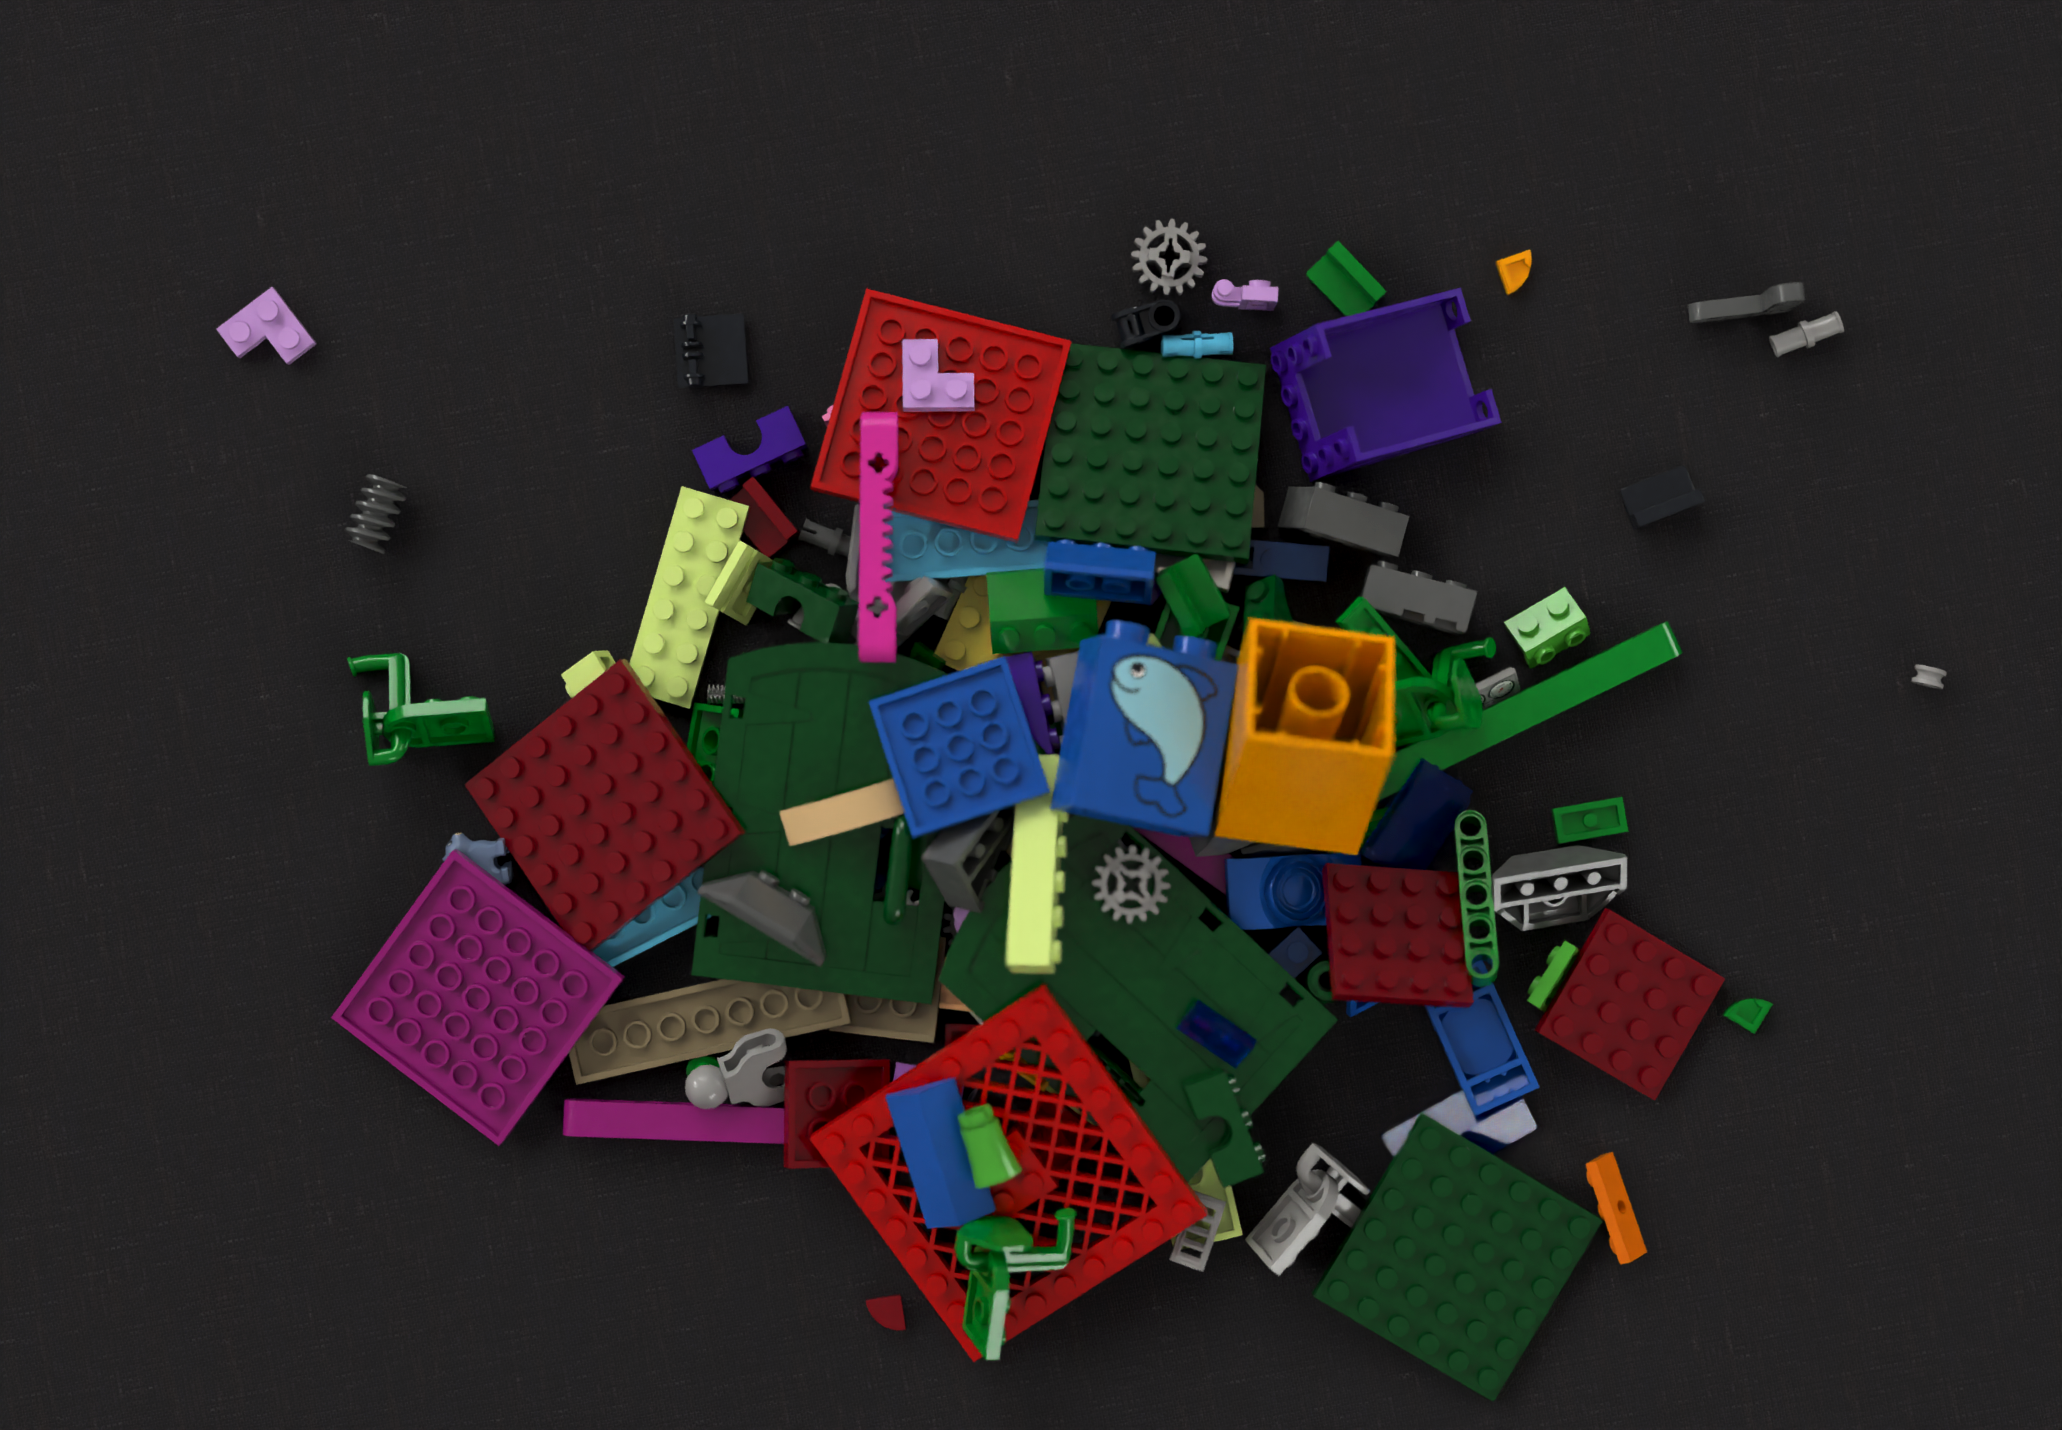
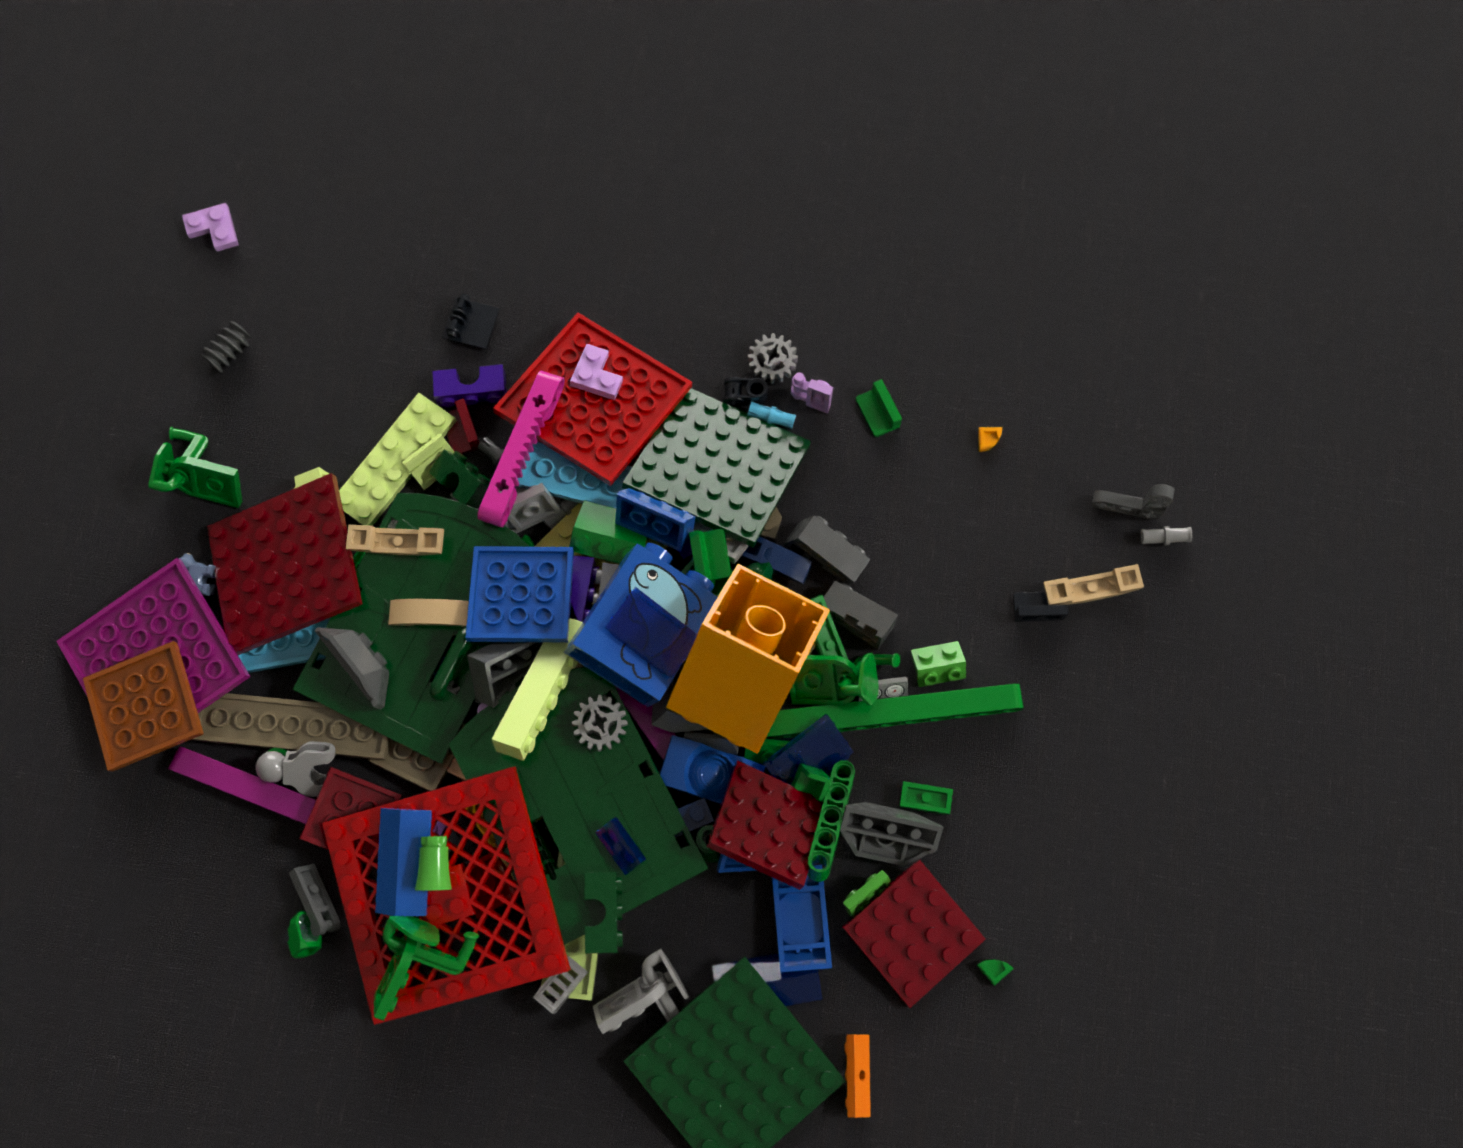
camera: 20 degrees right, 15 degrees down
(498, 1067) = (142, 706): none -> dark orange plate
(756, 729) = (395, 541): none -> tan slope
(833, 1235) = (315, 899): none -> dark grey plate
(837, 1283) = (301, 940): none -> green rock
(888, 1311) = (331, 968): dark red tile -> none
(1168, 750) = (652, 632): none -> clear blue piece
(1380, 384) = (879, 473): dark purple windscreen -> none
(1433, 852) = (811, 781): none -> green panel
(1726, 444) = (1093, 587): none -> tan slope
(1929, 676) = (1186, 781): light grey bush -> none

